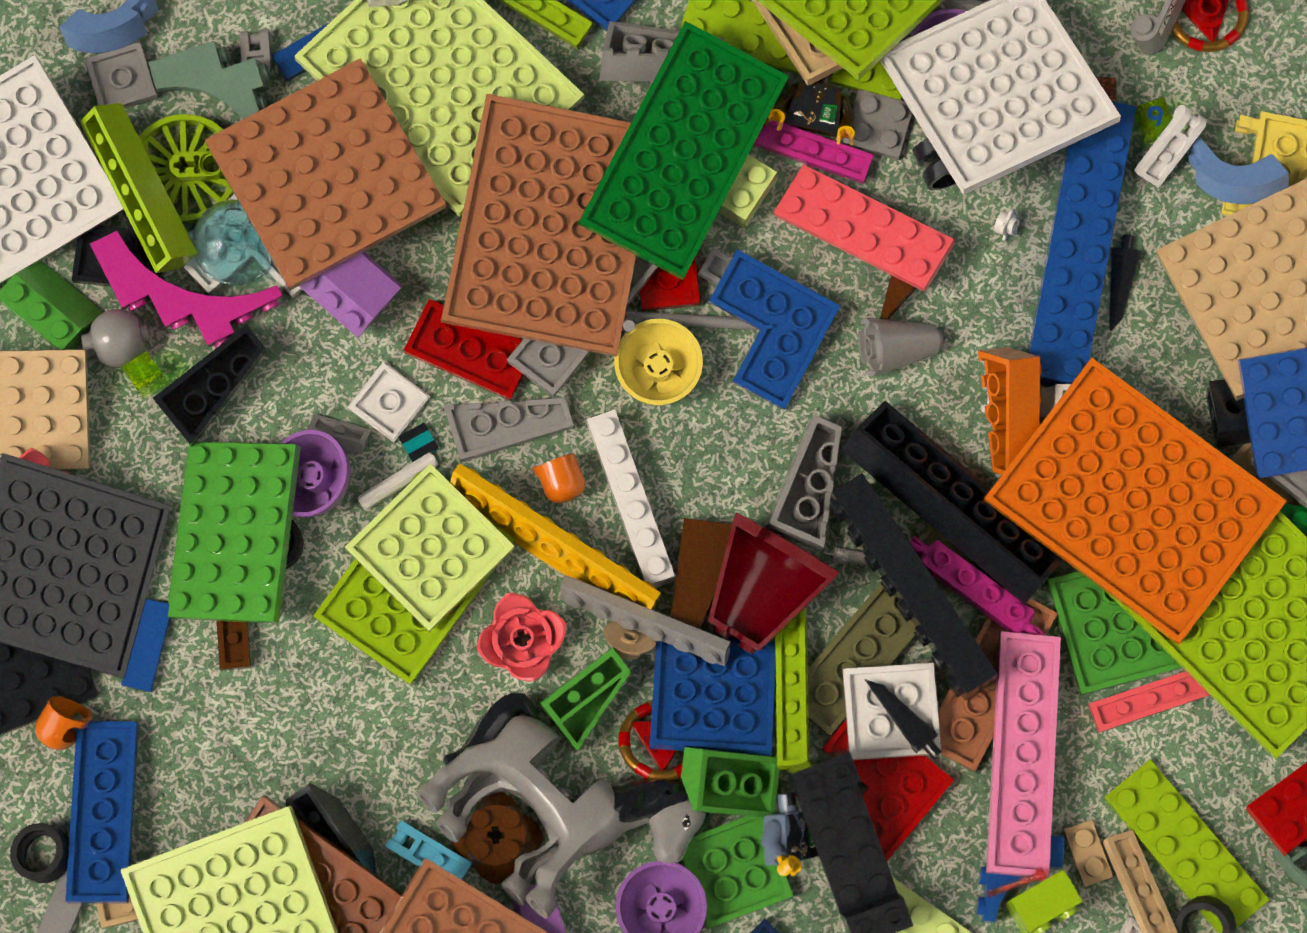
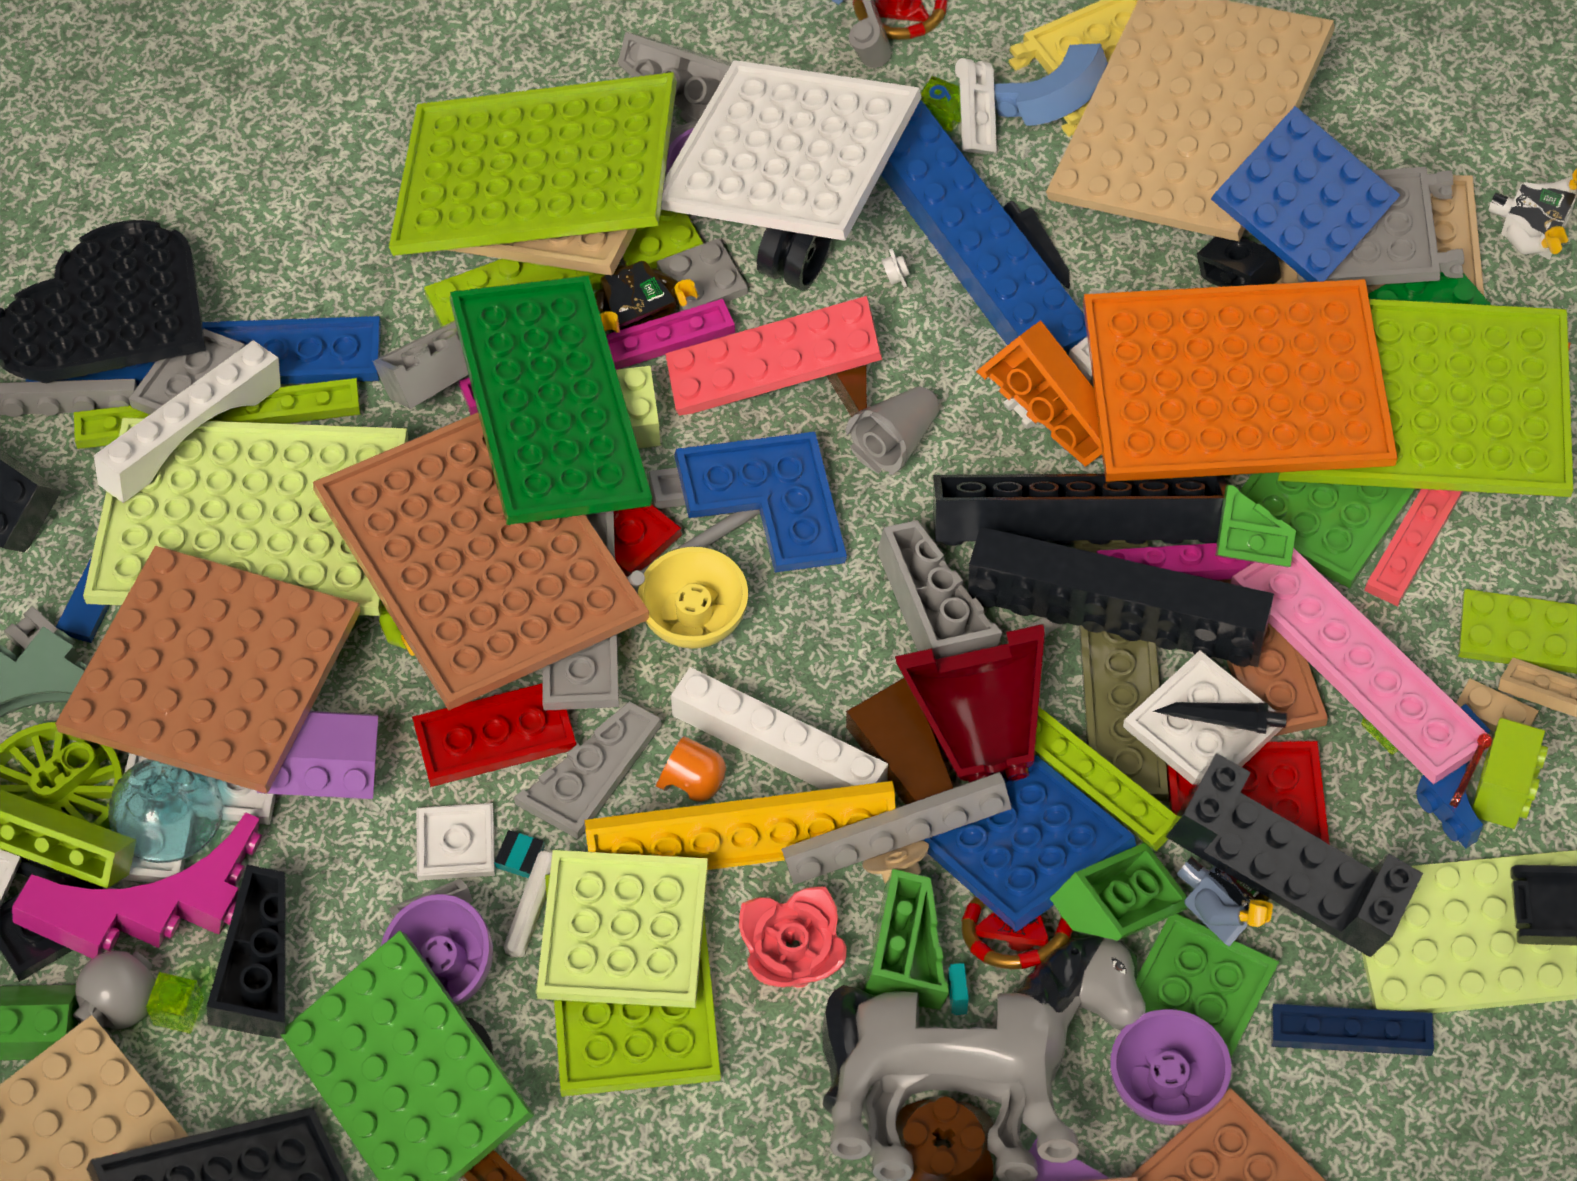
camera: 40 degrees left, 20 degrees down
(591, 750) = (958, 989): none -> teal tile
(1036, 617) = (1252, 532): none -> bright green wing

